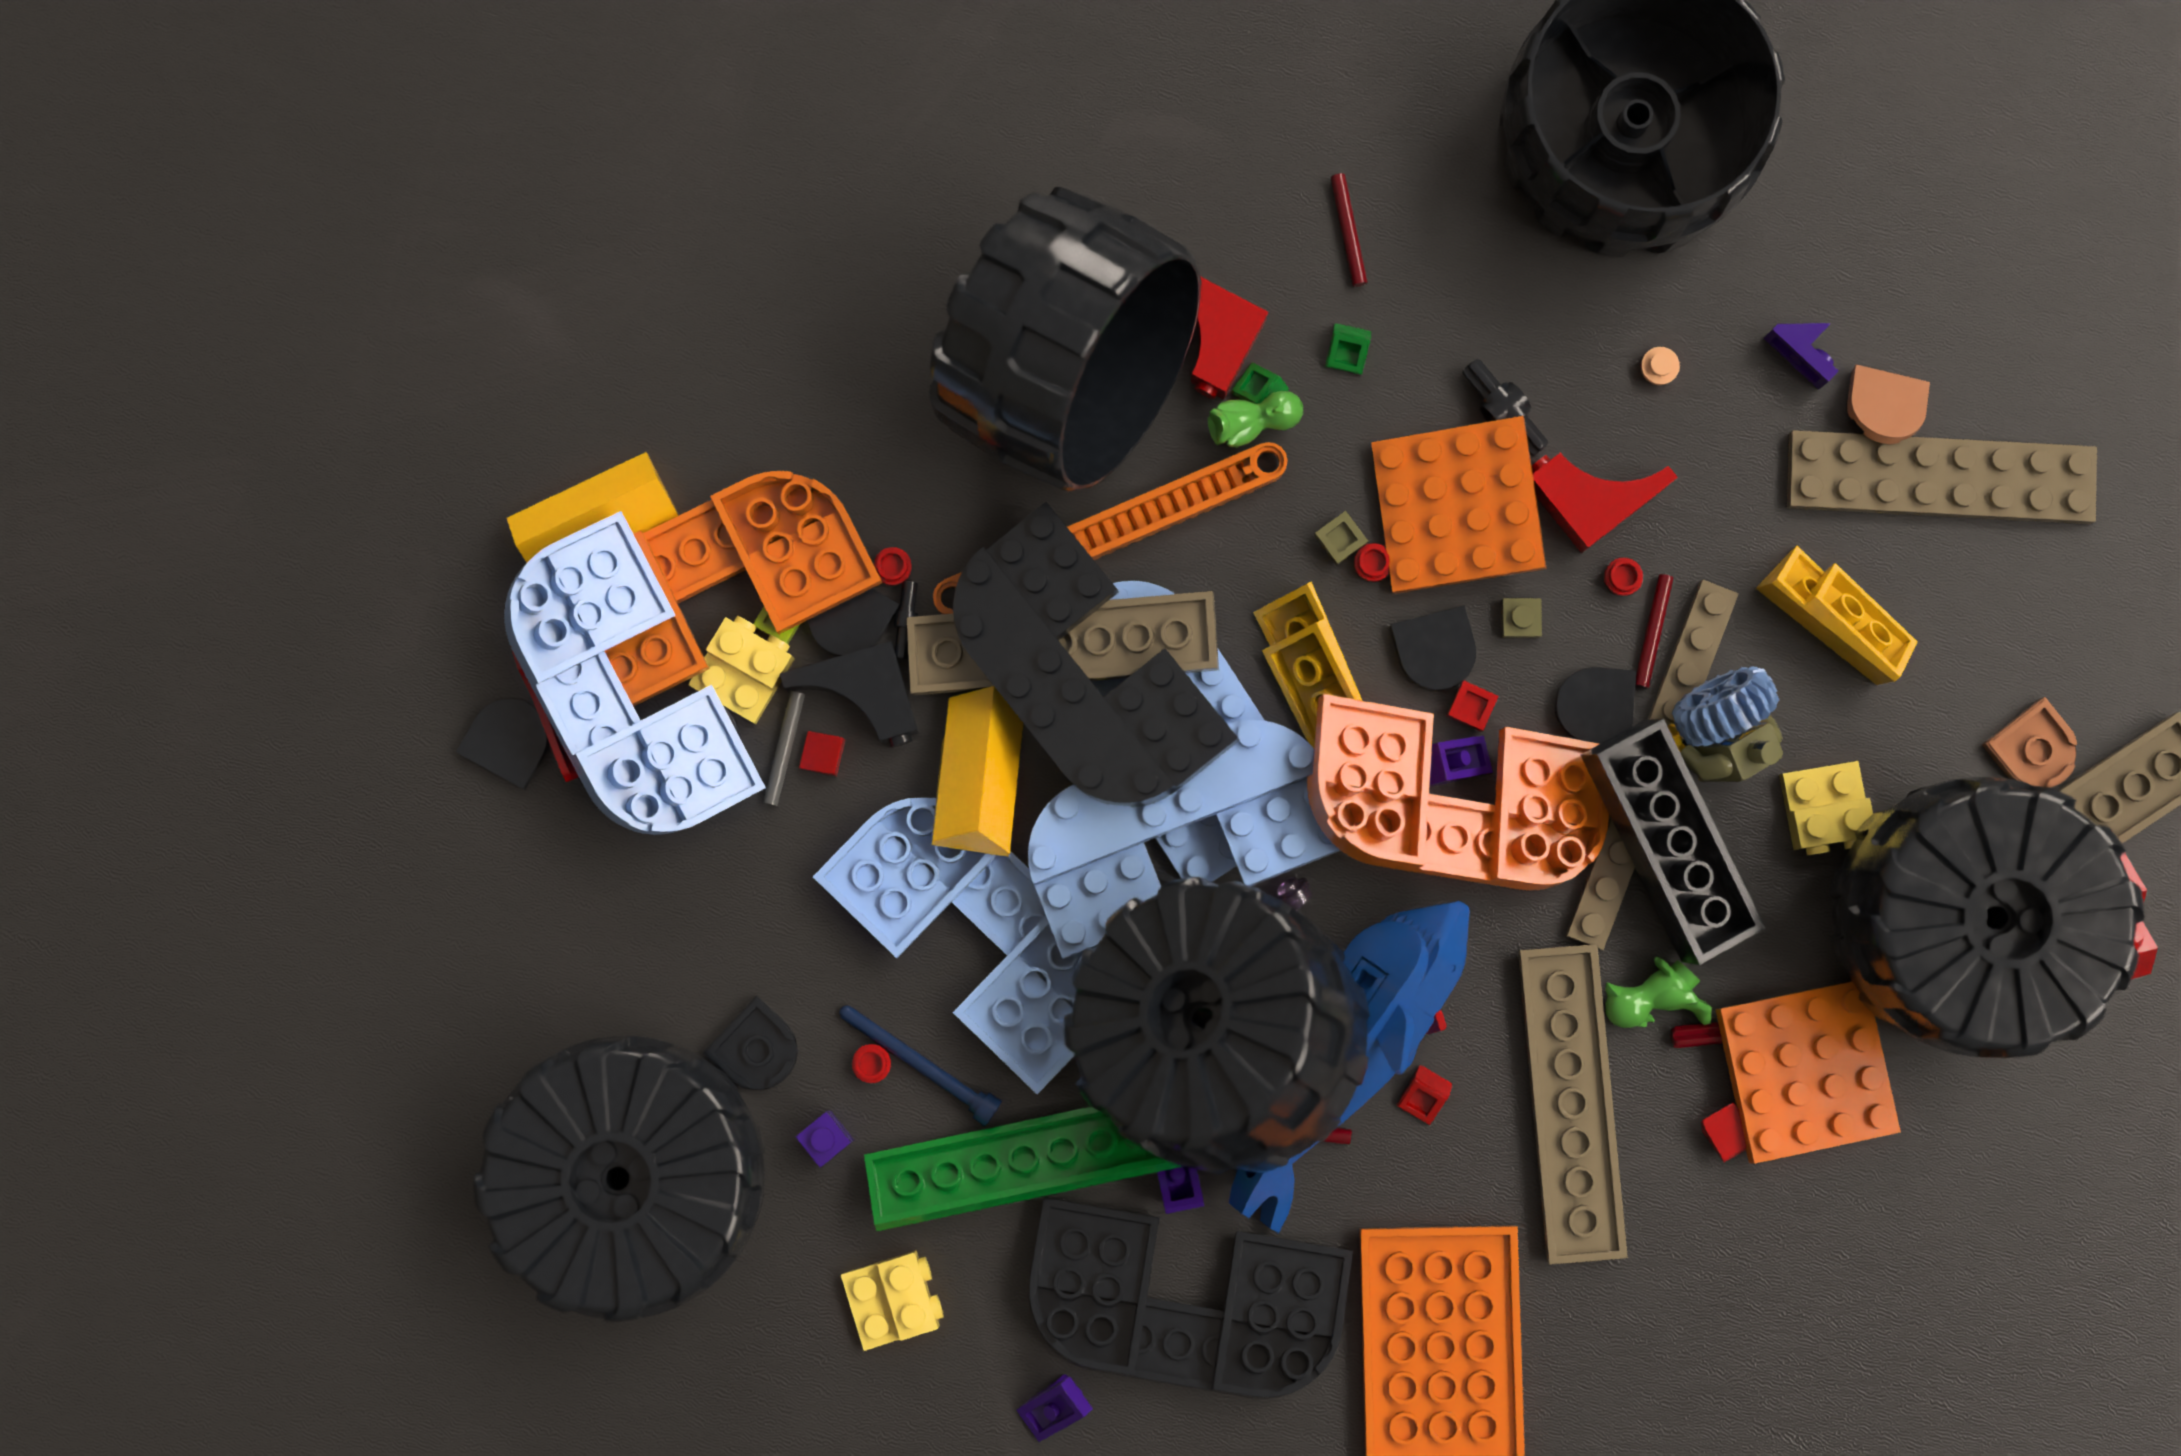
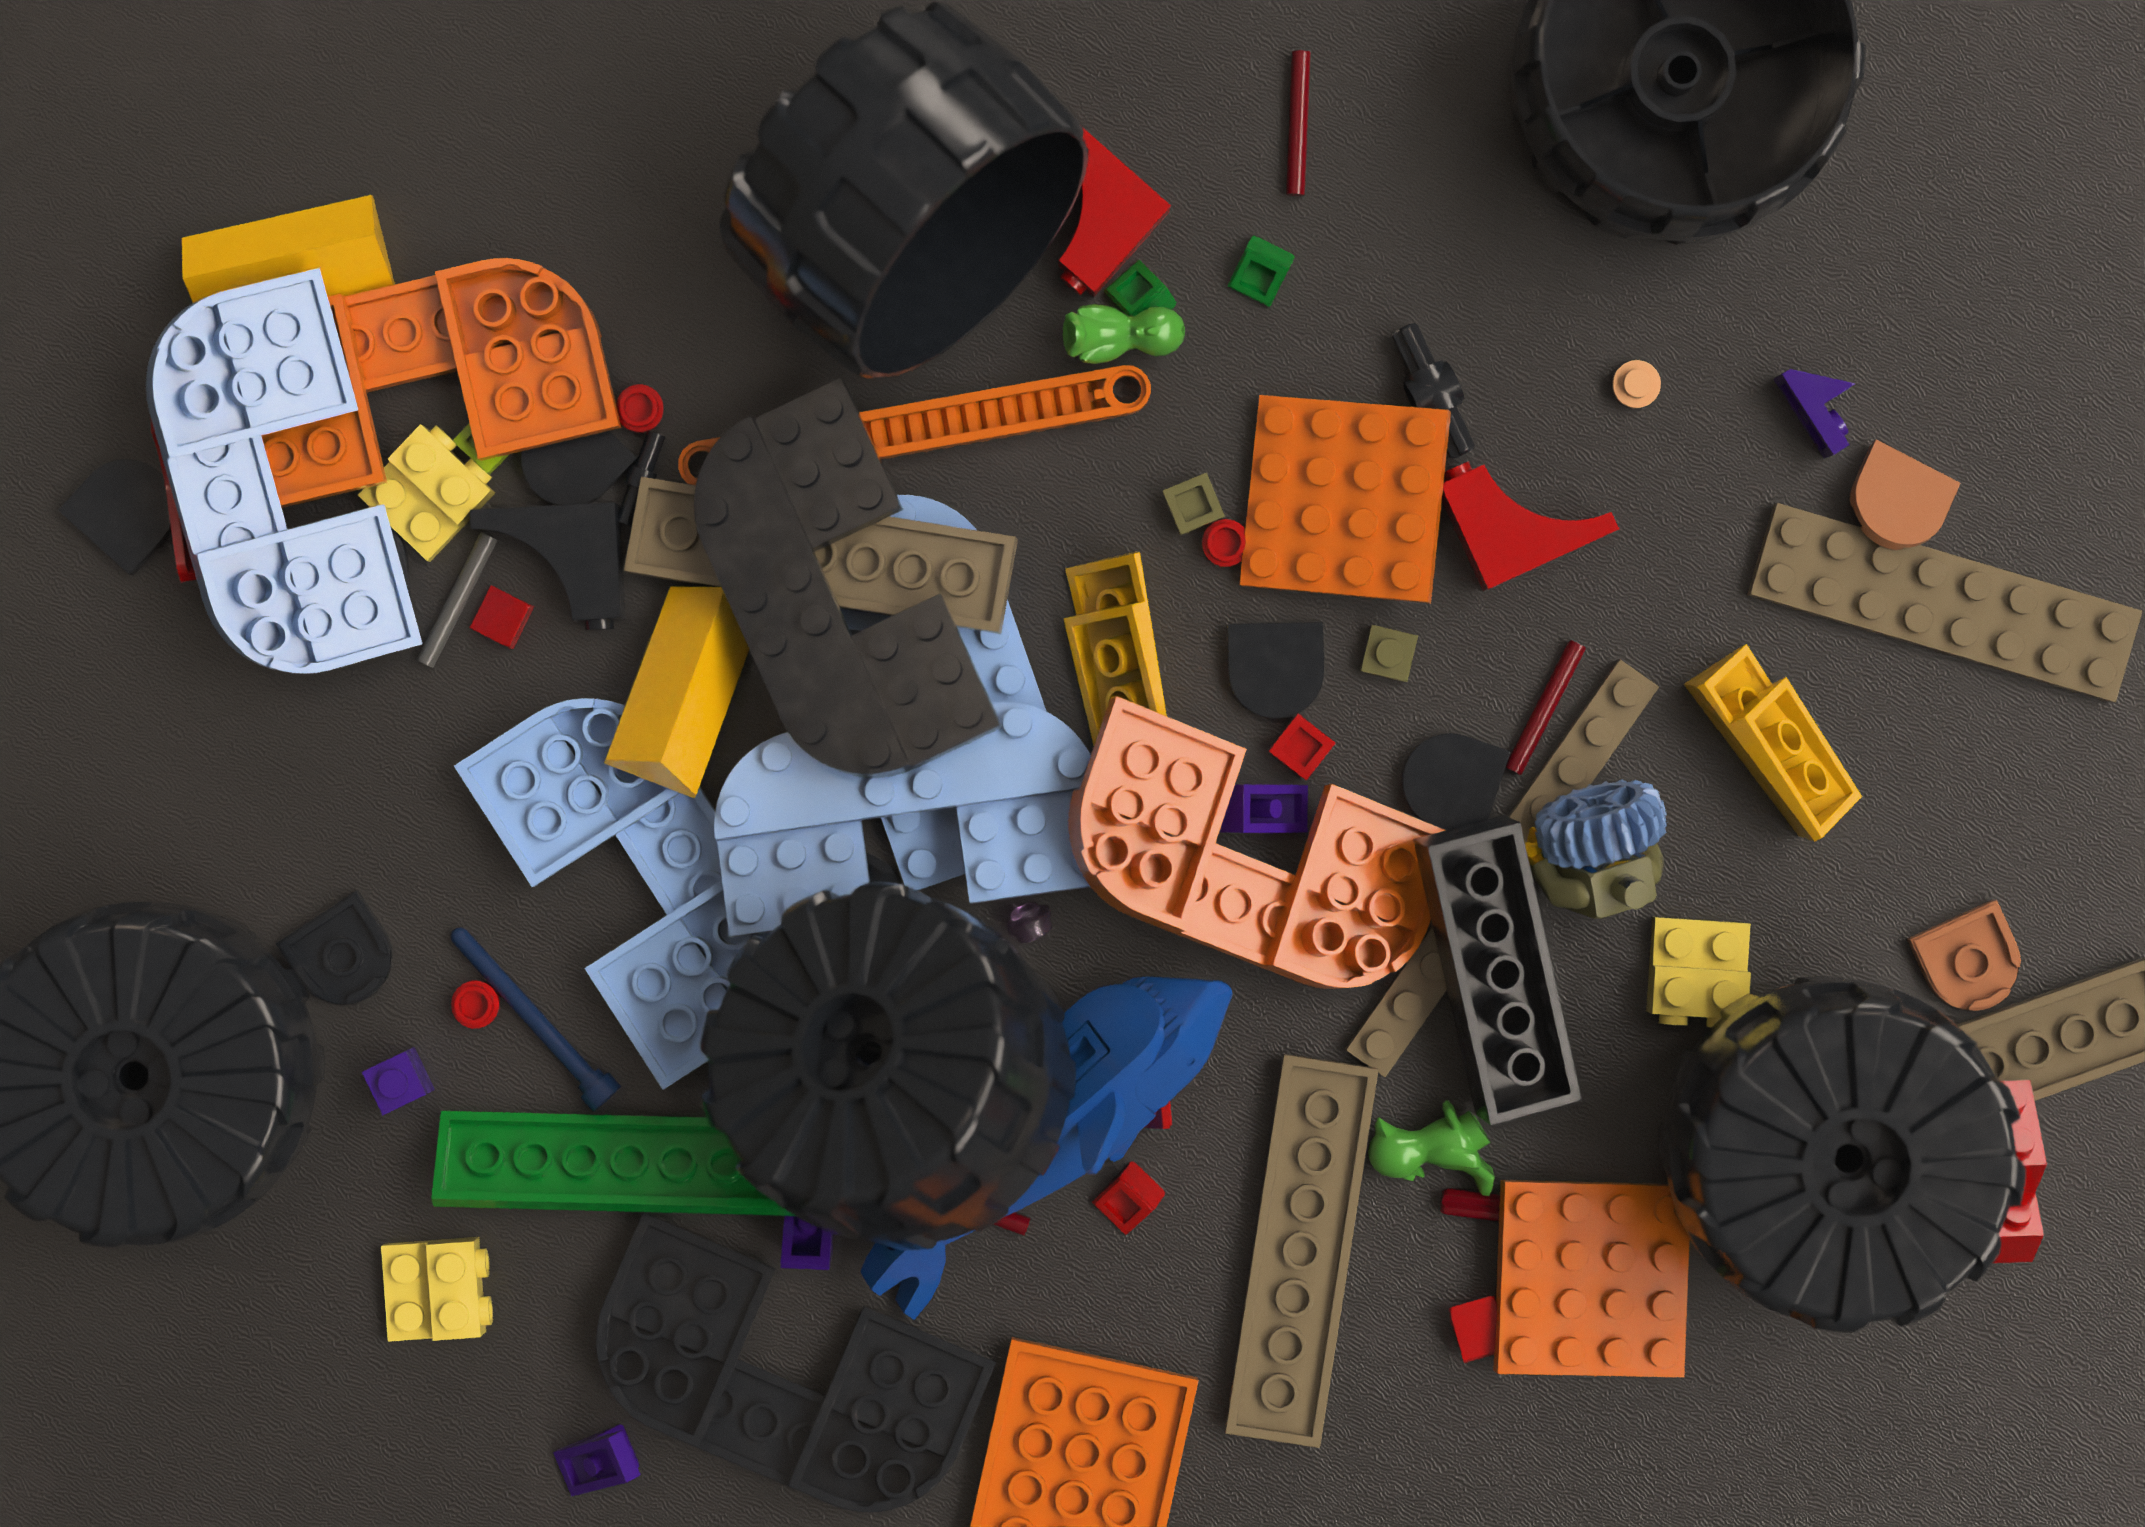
camera: 10 degrees right, 5 degrees up
(1623, 576) = (1525, 632): red plate -> none

